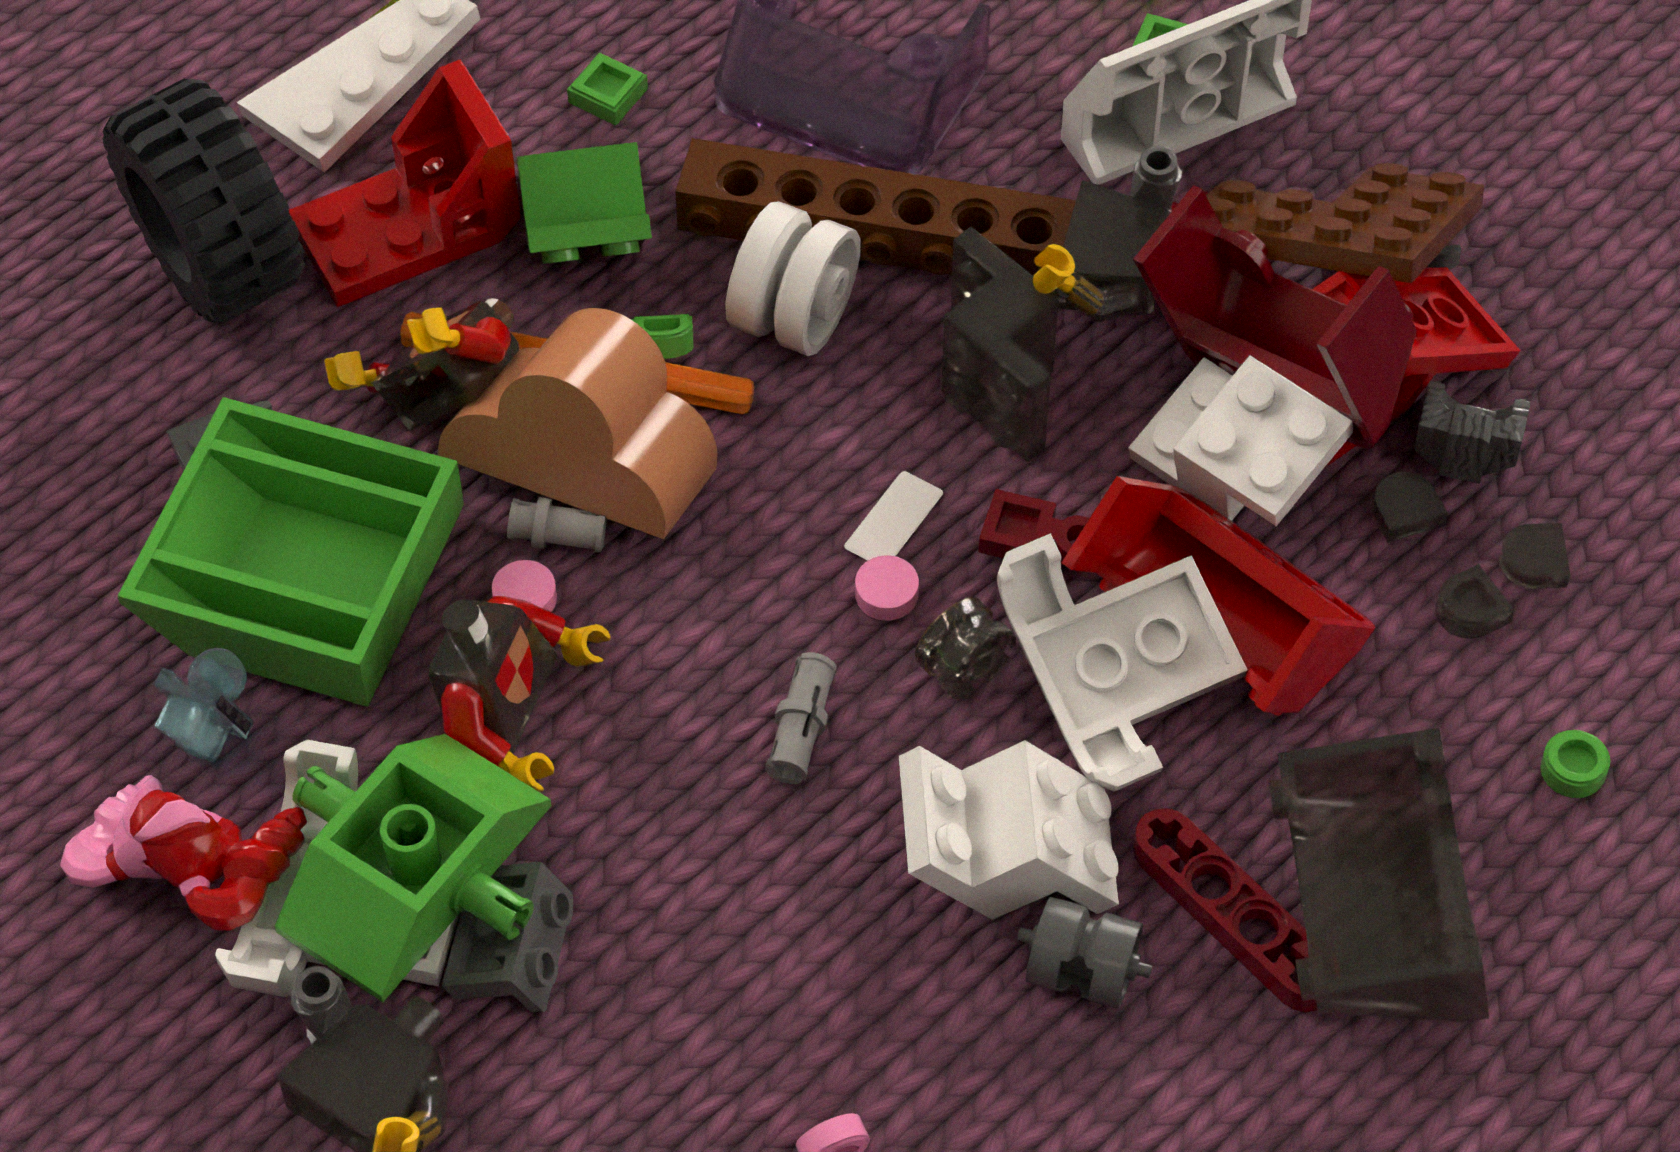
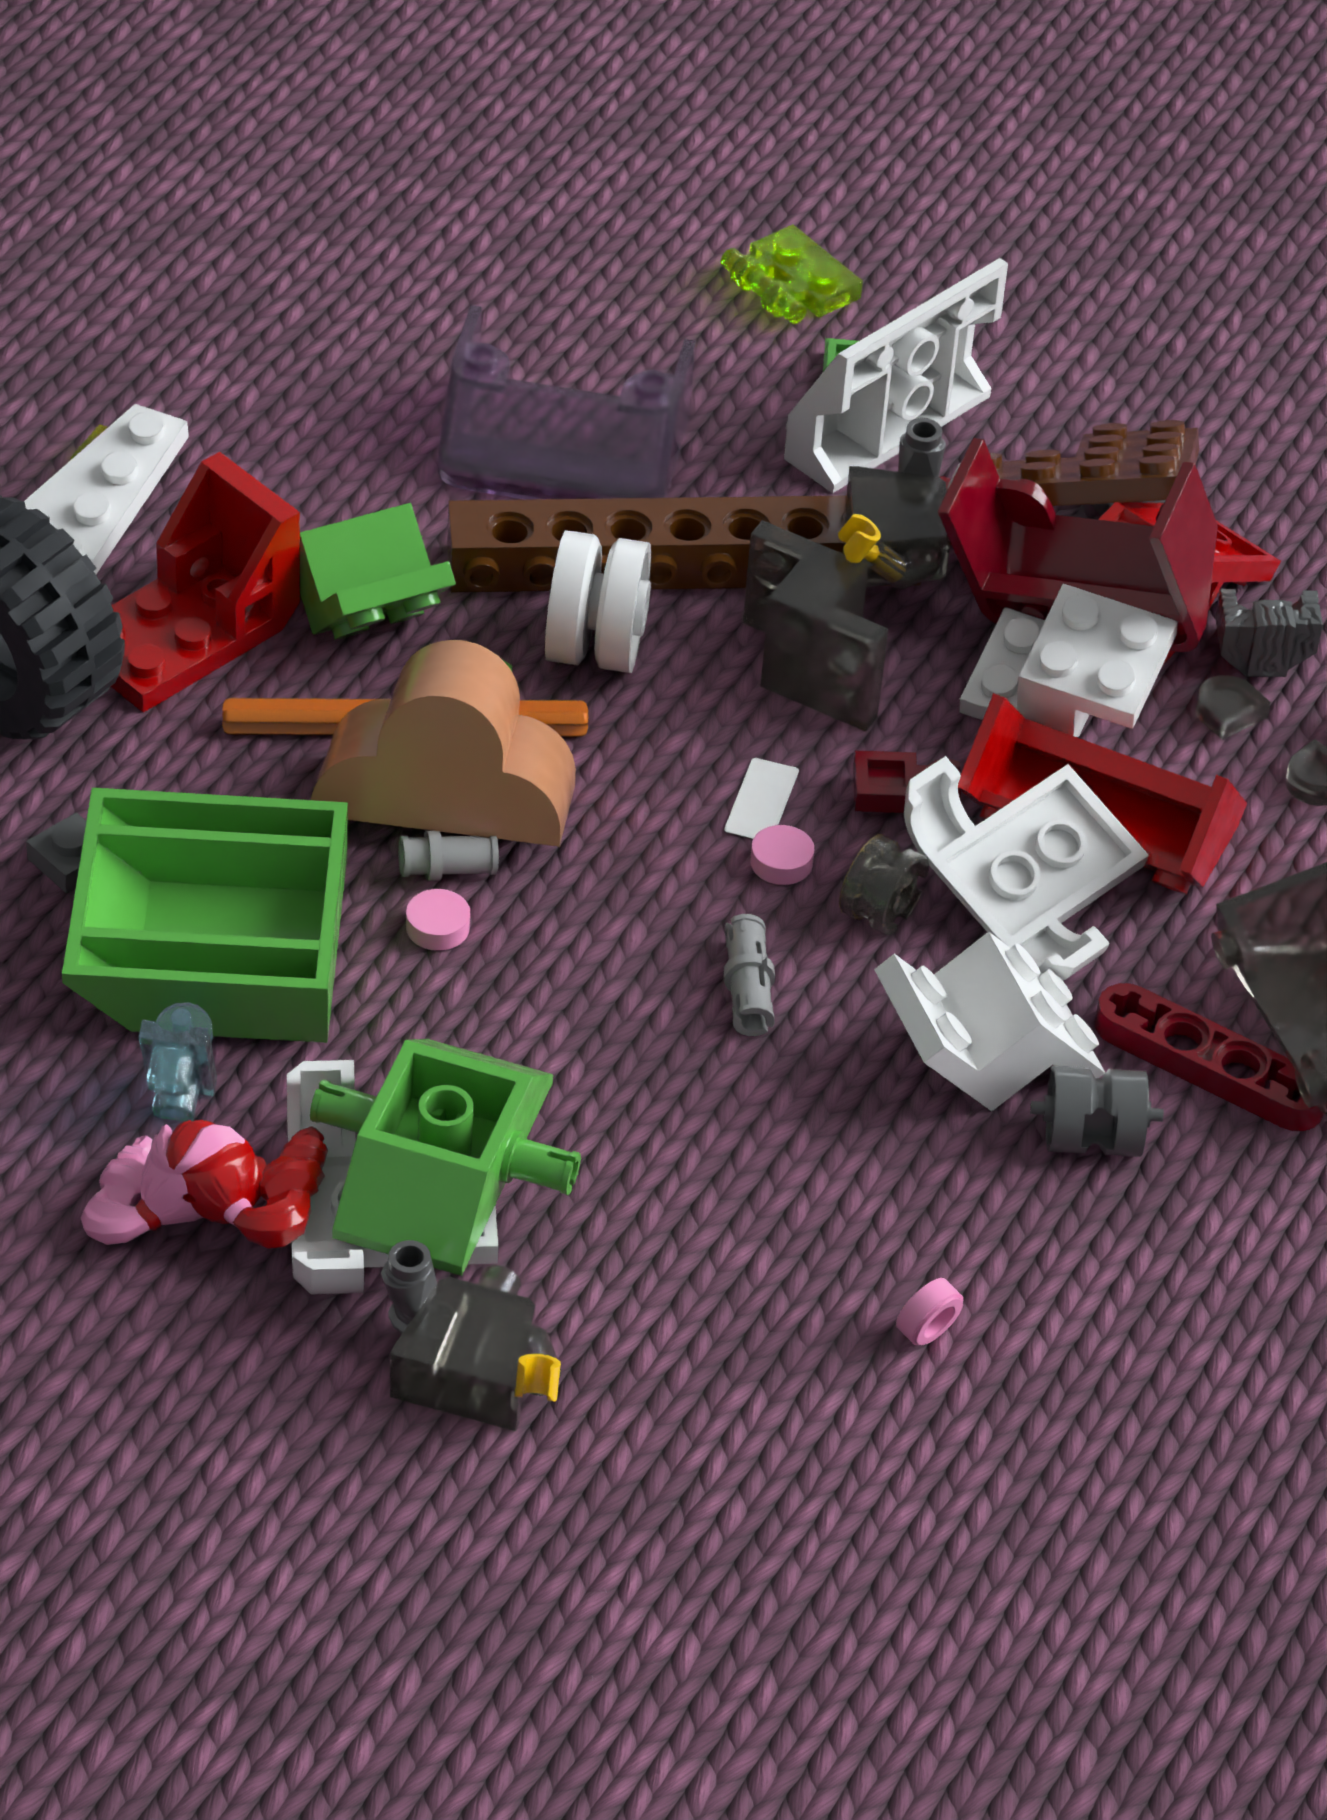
camera: 20 degrees left, 10 degrees down
(442, 369) = (285, 734): torso -> none
(495, 671) = (450, 976): torso -> none
(526, 966) = (545, 1224): dark grey bracket -> none
(607, 89) = (333, 481): bright green tile -> none

